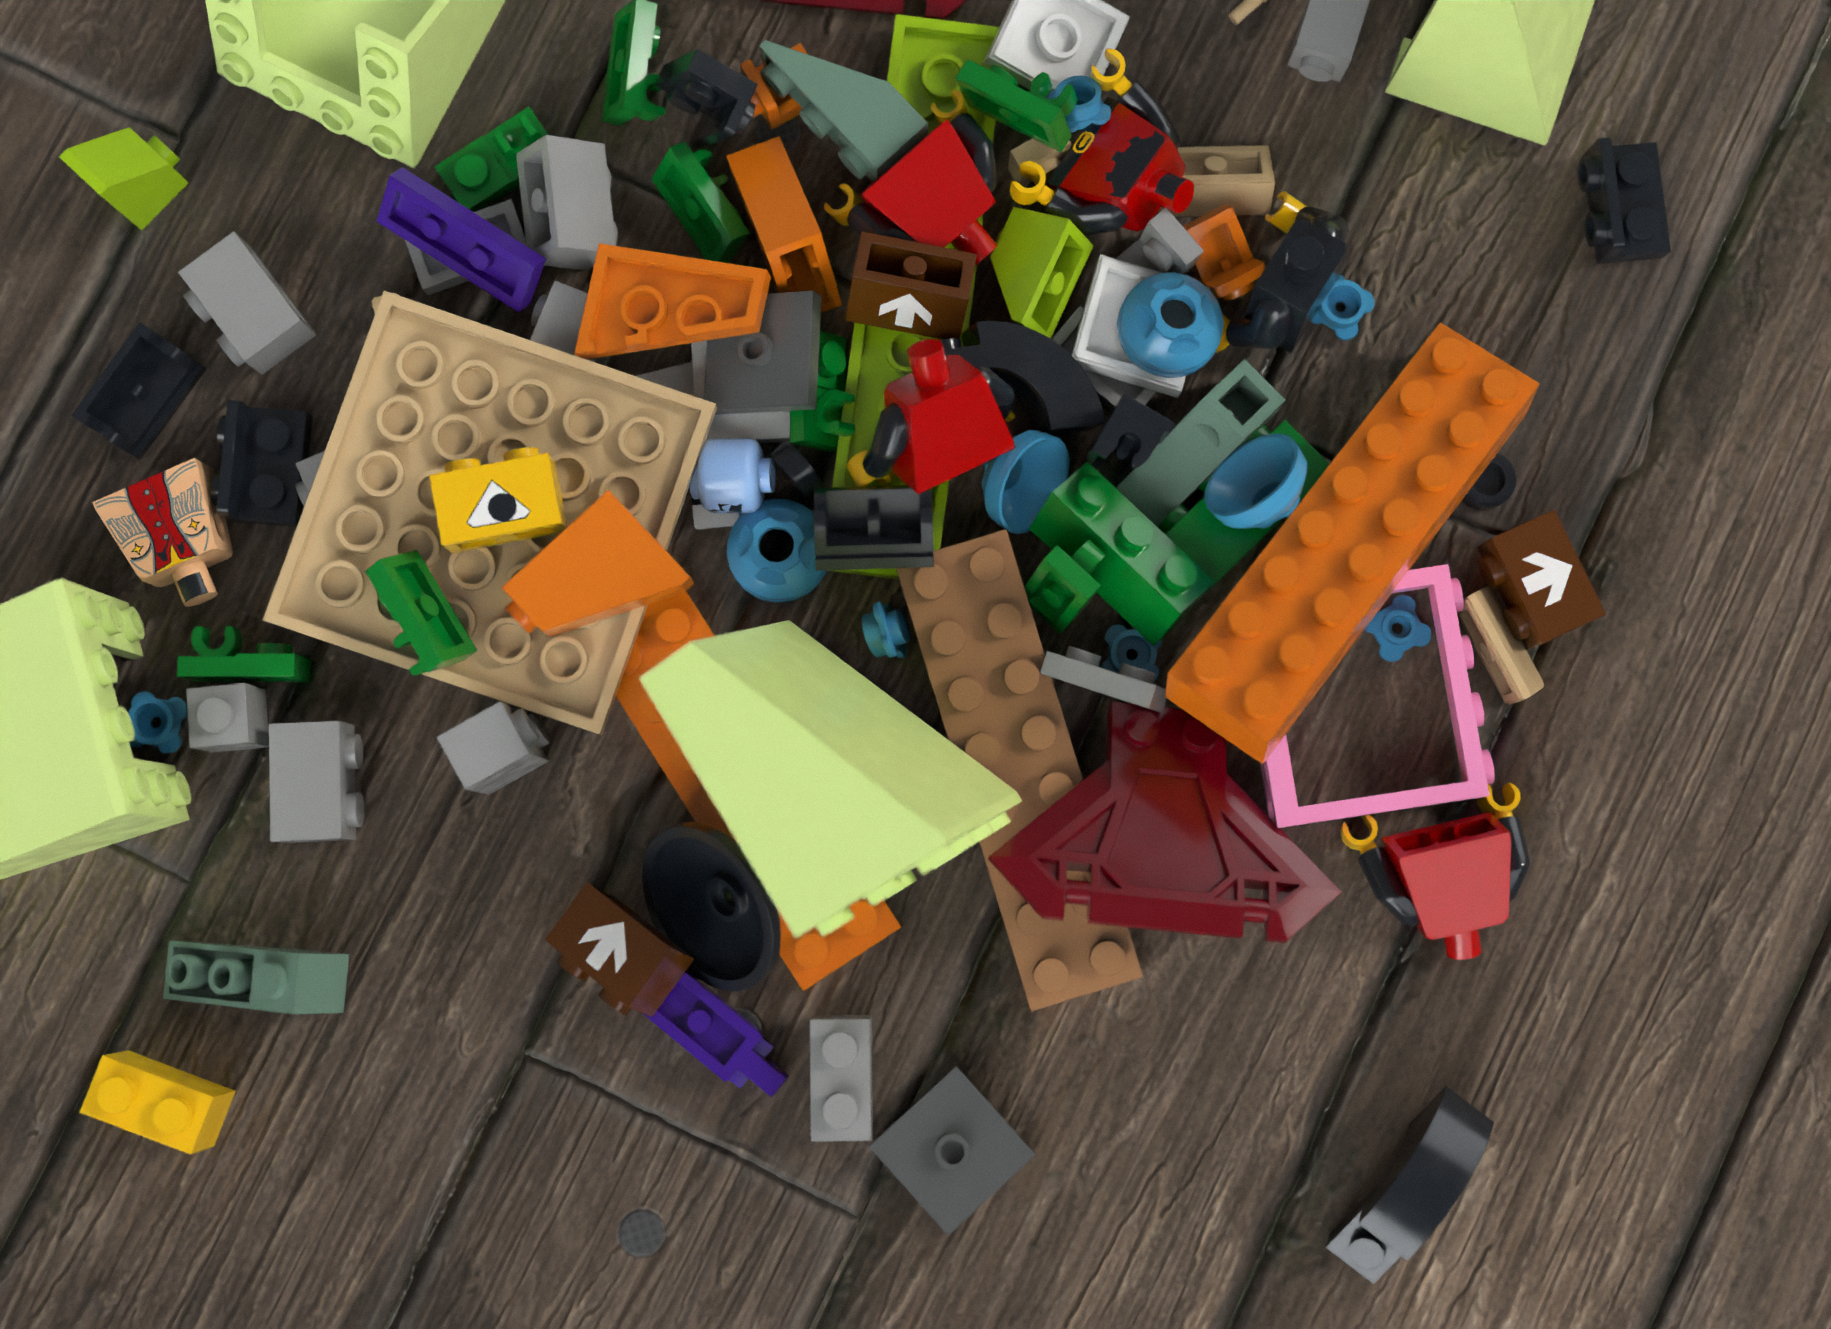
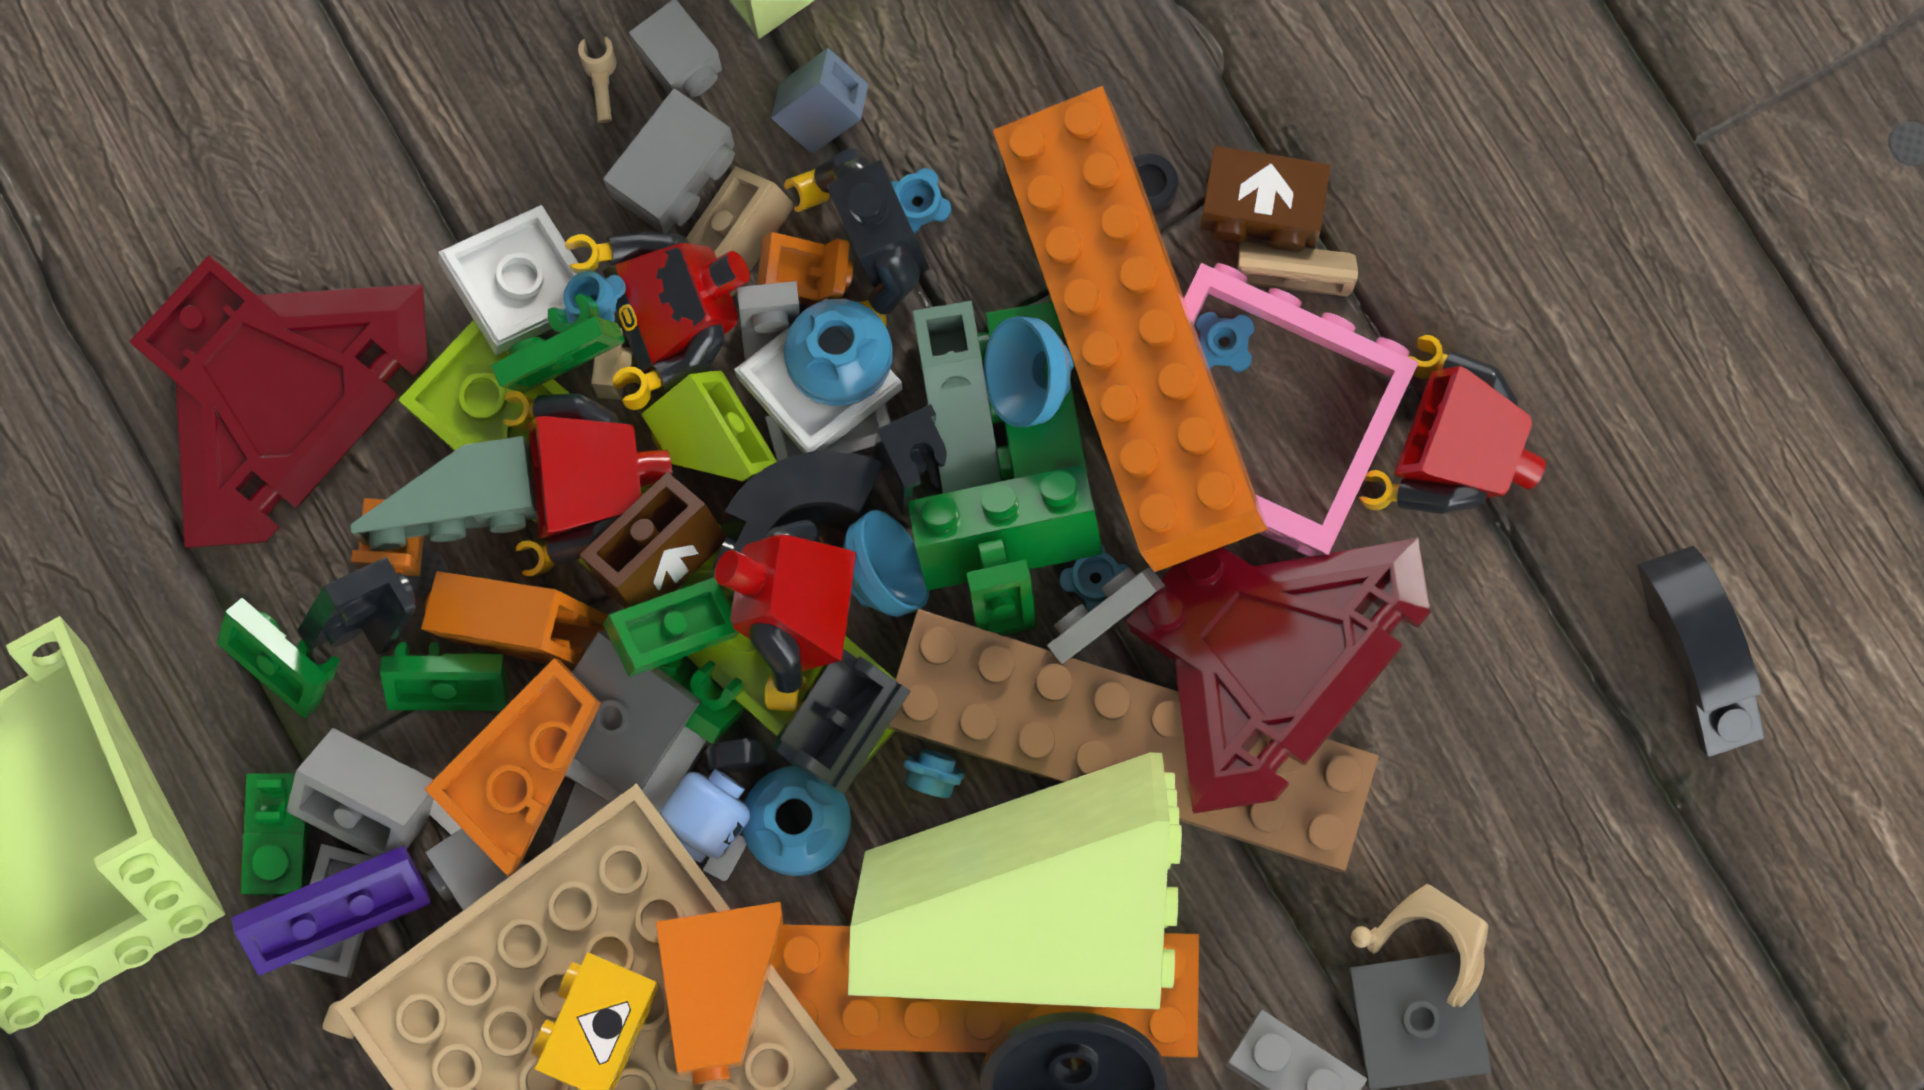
camera: 55 degrees left, 5 degrees down
(852, 341) = (670, 626): none -> green plate
(1048, 1139) = (1465, 927): none -> tan helmet
(1234, 91) = (671, 162): none -> light grey brick
(1368, 173) = (820, 101): none -> sand blue panel

